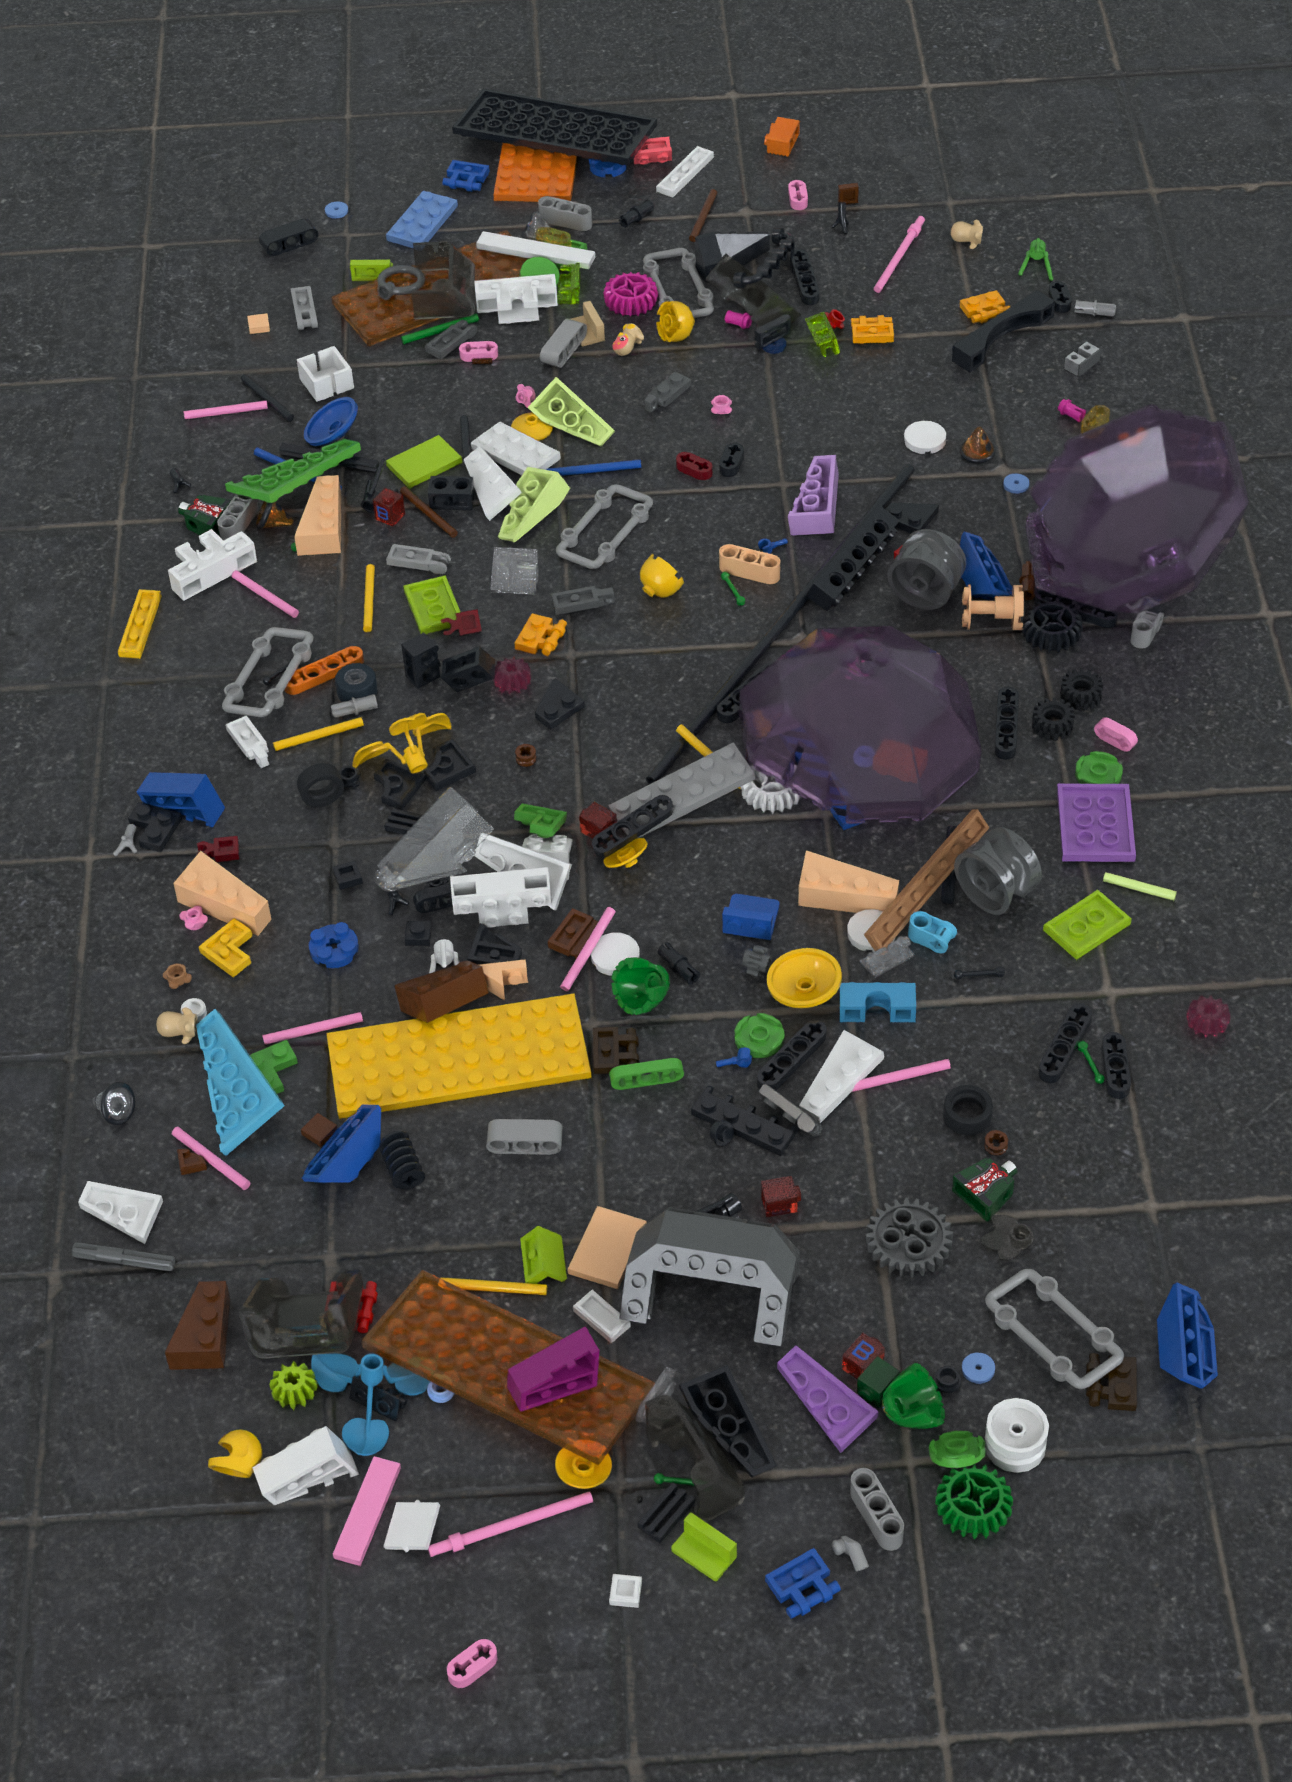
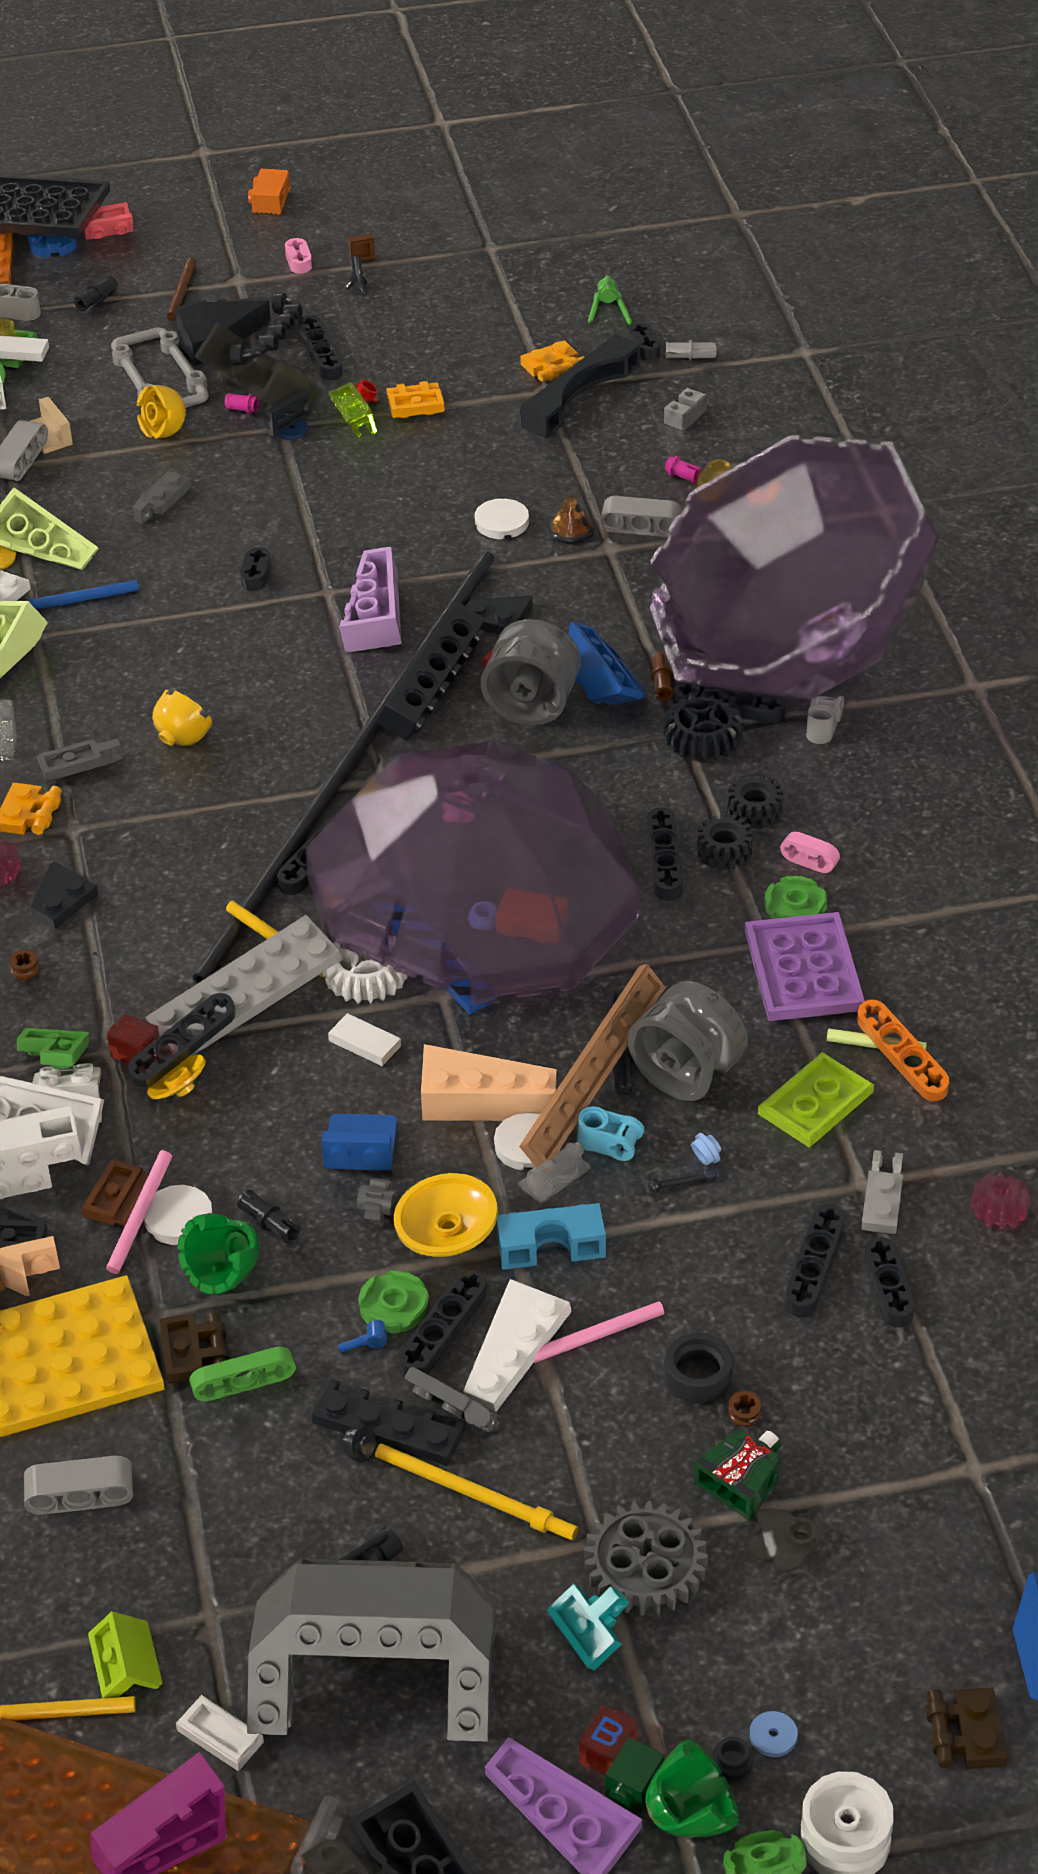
camera: 10 degrees left, 5 degrees down
(569, 285) = (19, 383): clear neon green hinge -> none
(605, 1247) = (214, 1630): light nougat tile -> none
(606, 550) = (104, 694): light grey bar -> none
(625, 340) = (100, 439): tan animal -> none
(630, 294) = (99, 386): dark pink gear -> none
(685, 171) = (151, 242): white tile -> none
(694, 466) = (207, 581): dark red beam -> none
(721, 405) = (233, 505): bright pink plate -> none
(740, 599) = (290, 738): green hinge -> none
(749, 564) = (296, 691): light nougat beam -> none
(764, 840) = (364, 1039): none -> white tile
(767, 546) = (317, 669): blue hand -> none
(779, 1196) = (454, 1522): clear red brick -> none
(838, 1200) = (539, 1518): none -> yellow bar
(862, 1276) = (589, 1622): none -> teal hinge
(913, 232) = (448, 285): bright pink bar -> none
(966, 232) = (515, 278): tan animal -> none
(1000, 952) = (706, 1148): none -> light blue plate
(1002, 607) = (635, 710): light nougat piece -> none
(1010, 486) = (626, 562): medium blue wheel -> none
(1031, 446) = (639, 515): none -> light grey beam
(1060, 1366) = (890, 1714): light grey bar -> none
(1082, 1047) = (839, 1263): green hinge -> none
(1123, 1002) = (883, 1196): none -> light grey hinge
(1157, 895) = (907, 1047): none -> orange beam

